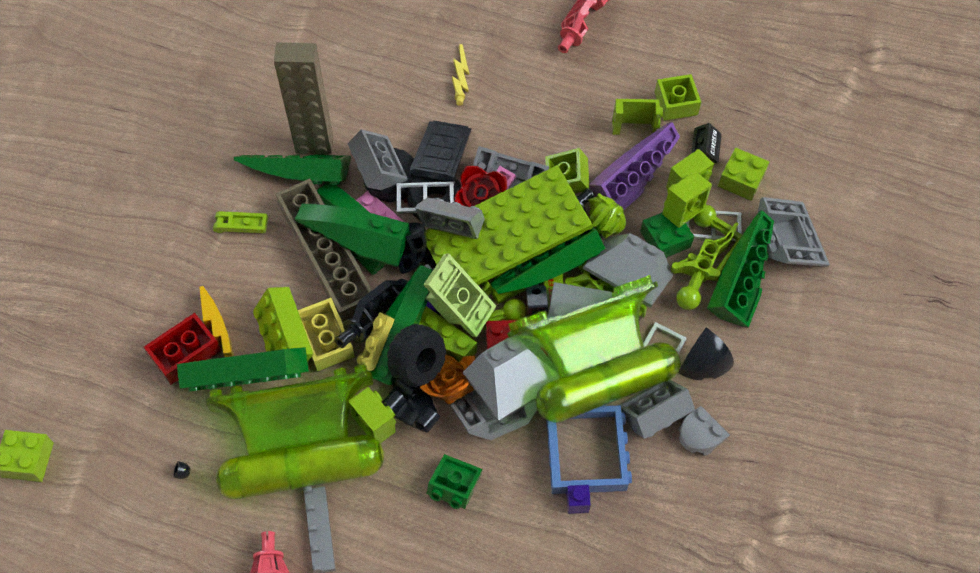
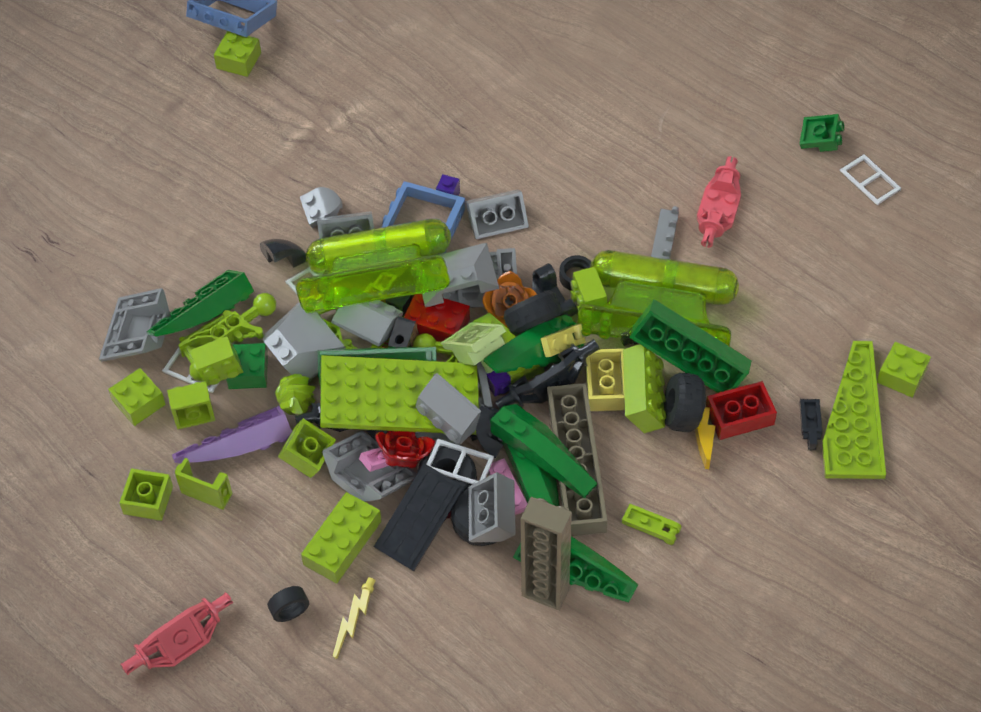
camera: 155 degrees left, 5 degrees down
(67, 377) = (854, 431): none -> lime wing
(112, 369) = (811, 421): none -> black hinge
(181, 470) = (767, 318): black hinge -> none
(237, 325) = (684, 402): none -> black tyre
(404, 464) = (571, 262): none -> black tyre
(453, 482) = (541, 233): green plate -> none
(500, 118) = (341, 537): none -> lime brick
(512, 55) = (288, 604): none -> black tyre
(513, 491) = (497, 214): none -> light grey slope
(708, 140) = (150, 444): pearl dark grey panel -> none

